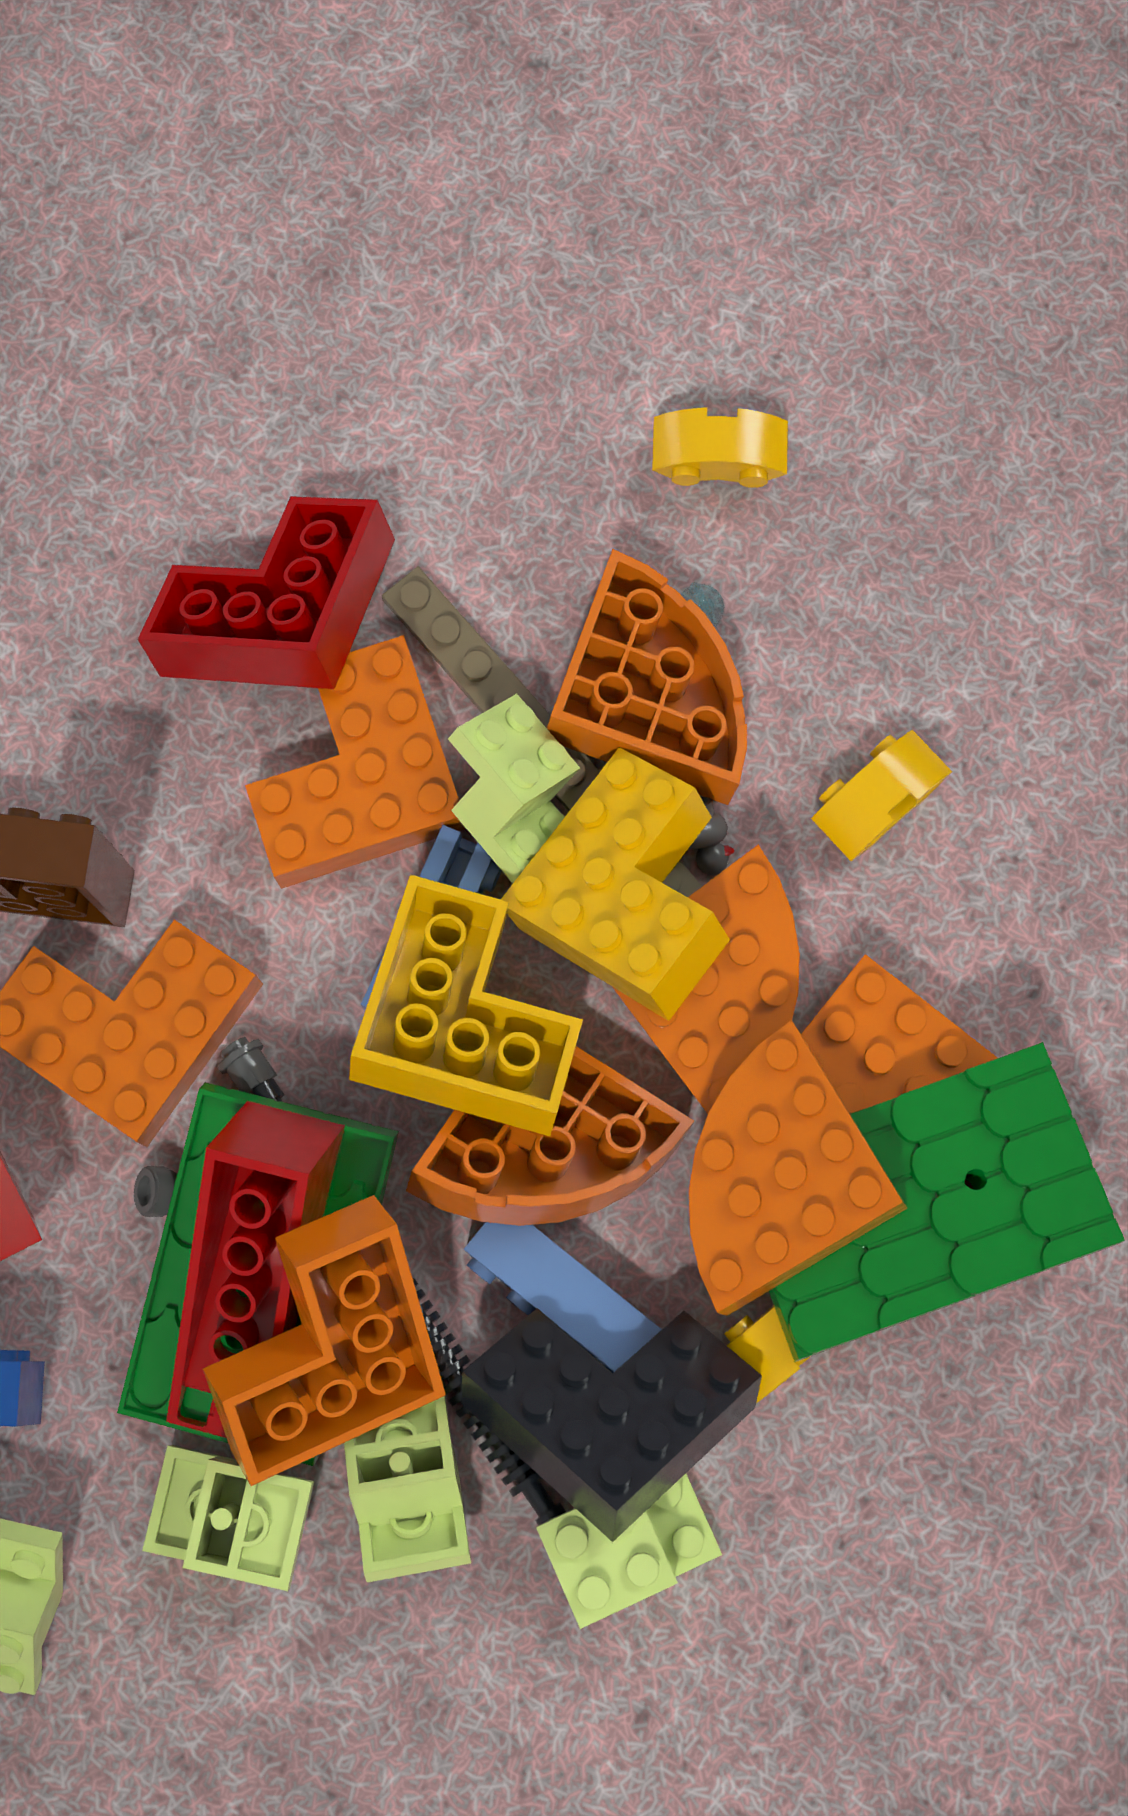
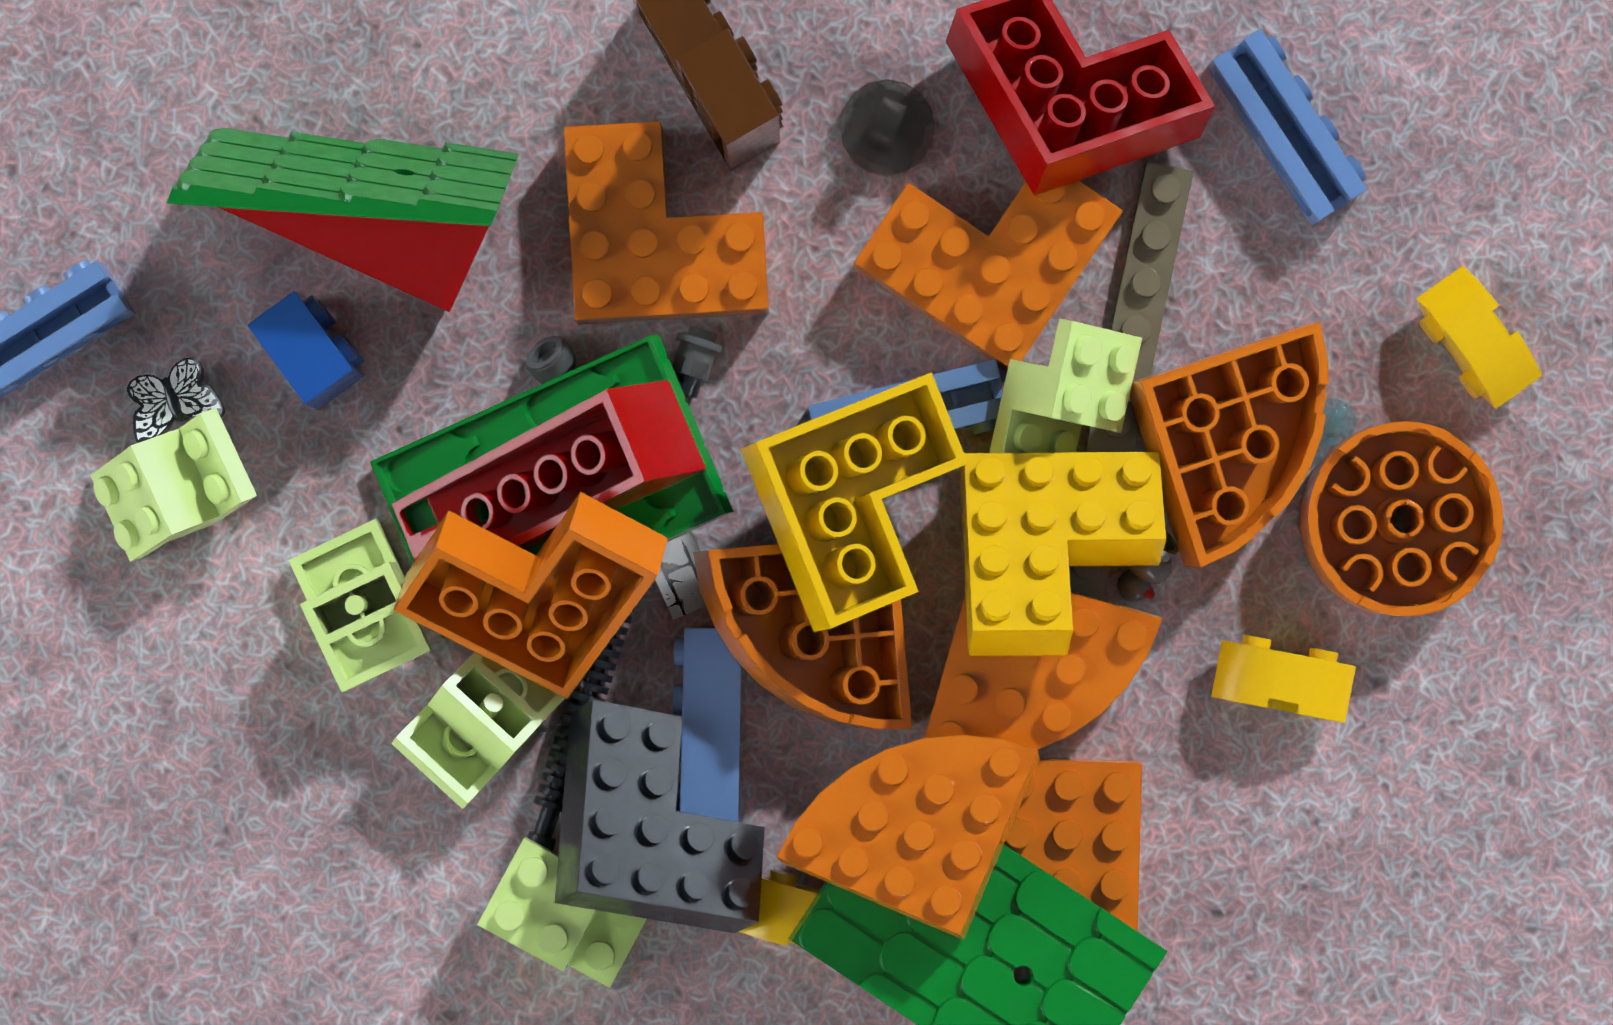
camera: 50 degrees right, 10 degrees up
(191, 776) = (887, 127): none -> clear smoke tile
(421, 1222) = (679, 578): none -> white sticker
(440, 468) = (1287, 126): none -> medium blue brick
(829, 655) = (1451, 509): none -> orange brick

